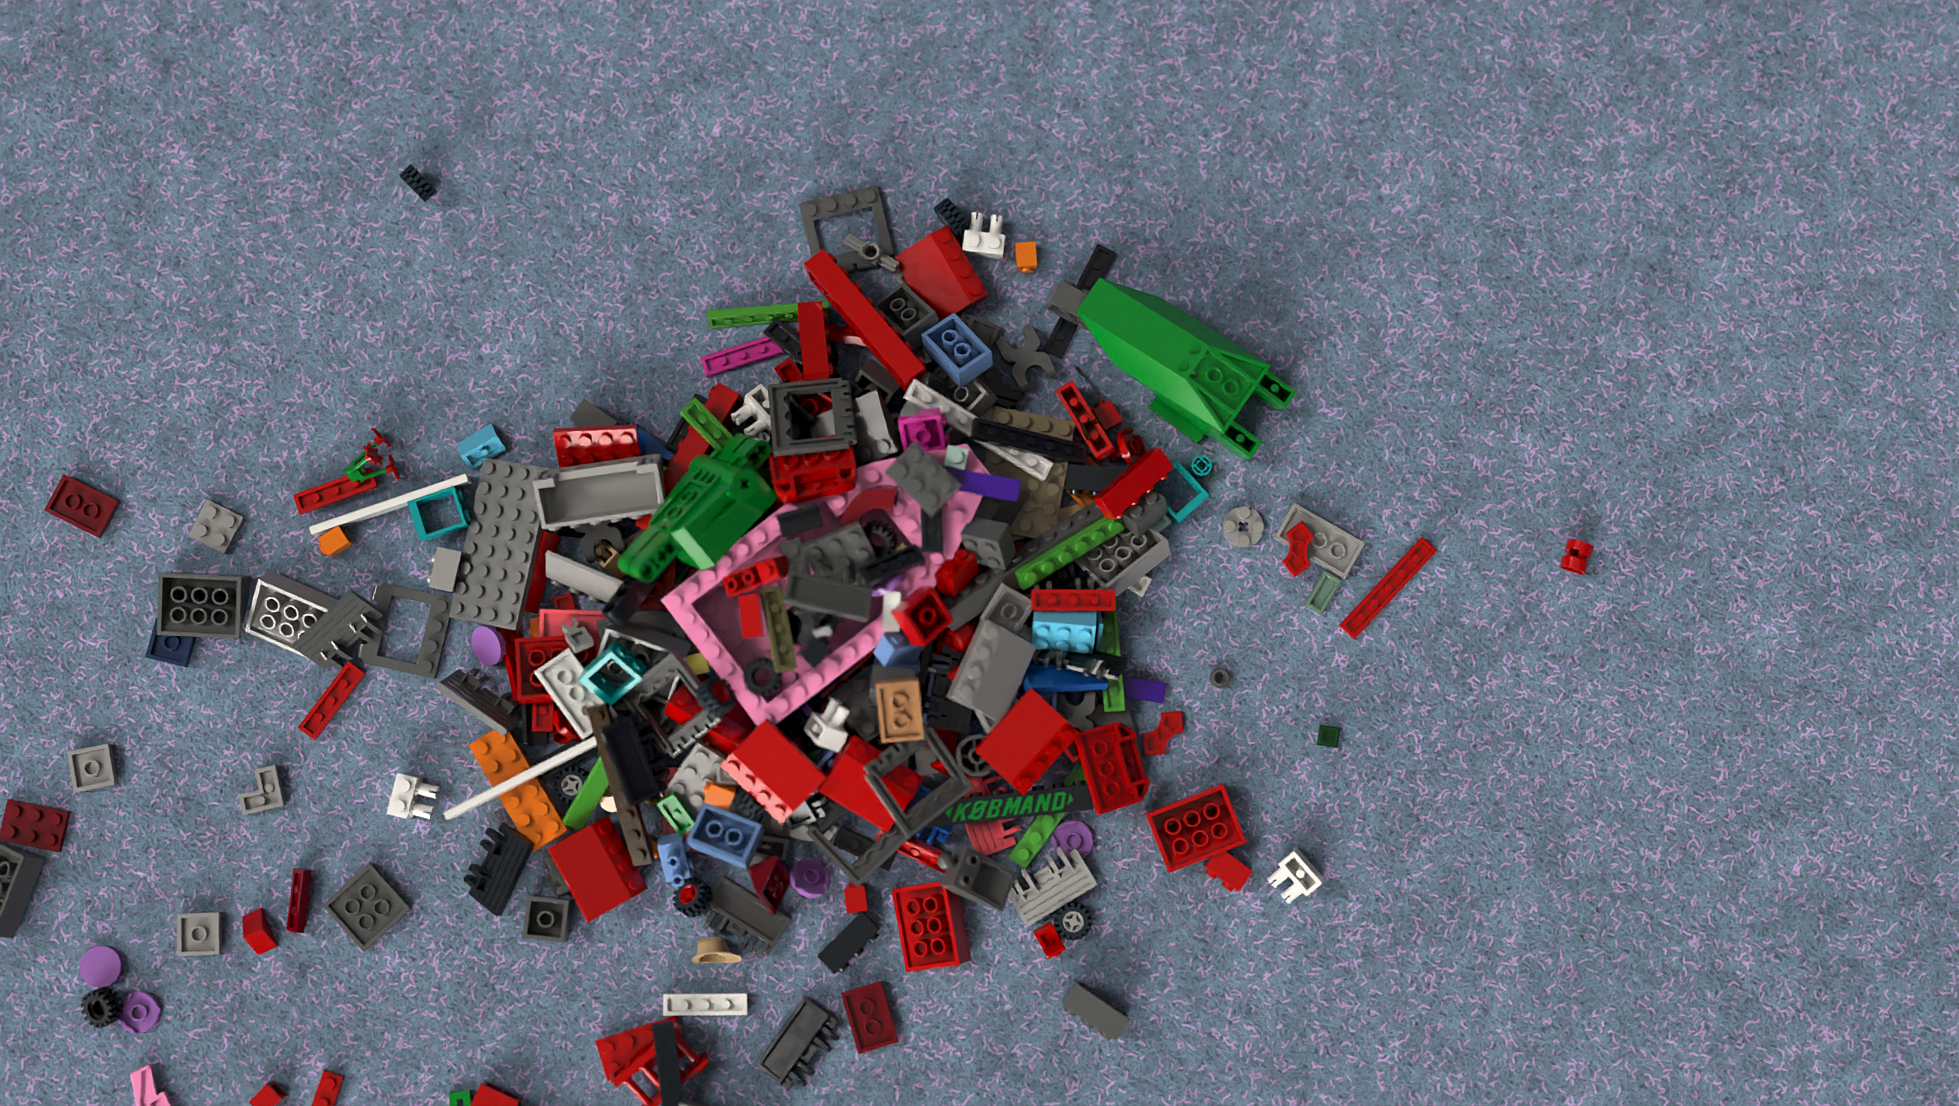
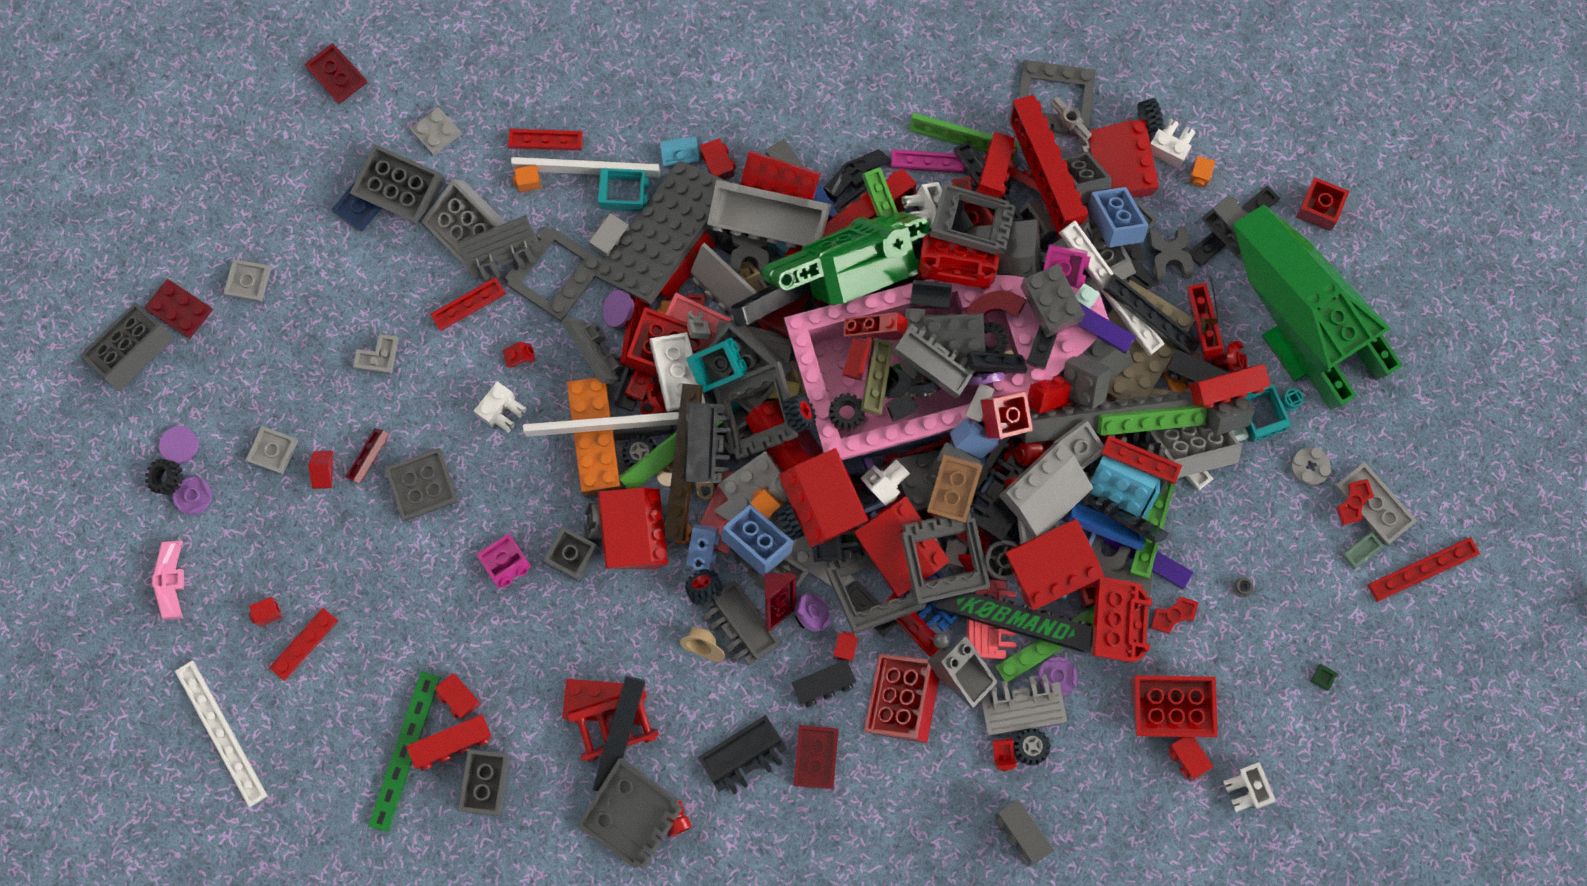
camera: 25 degrees right, 10 degrees down
(356, 468) = (570, 127): plant -> none
(407, 732) = (518, 354): none -> red bracket
(483, 951) = (504, 561): none -> dark pink plate
(503, 866) = (551, 495): black hinge -> none
(524, 443) = (717, 160): none -> red brick
(672, 400) = (852, 173): none -> black plate
(676, 813) = (720, 506): plate -> none
(705, 1004) = (676, 686): white plate -> none
(1107, 415) = (1226, 325): red brick -> none
(1160, 244) = (1322, 204): none -> red brick

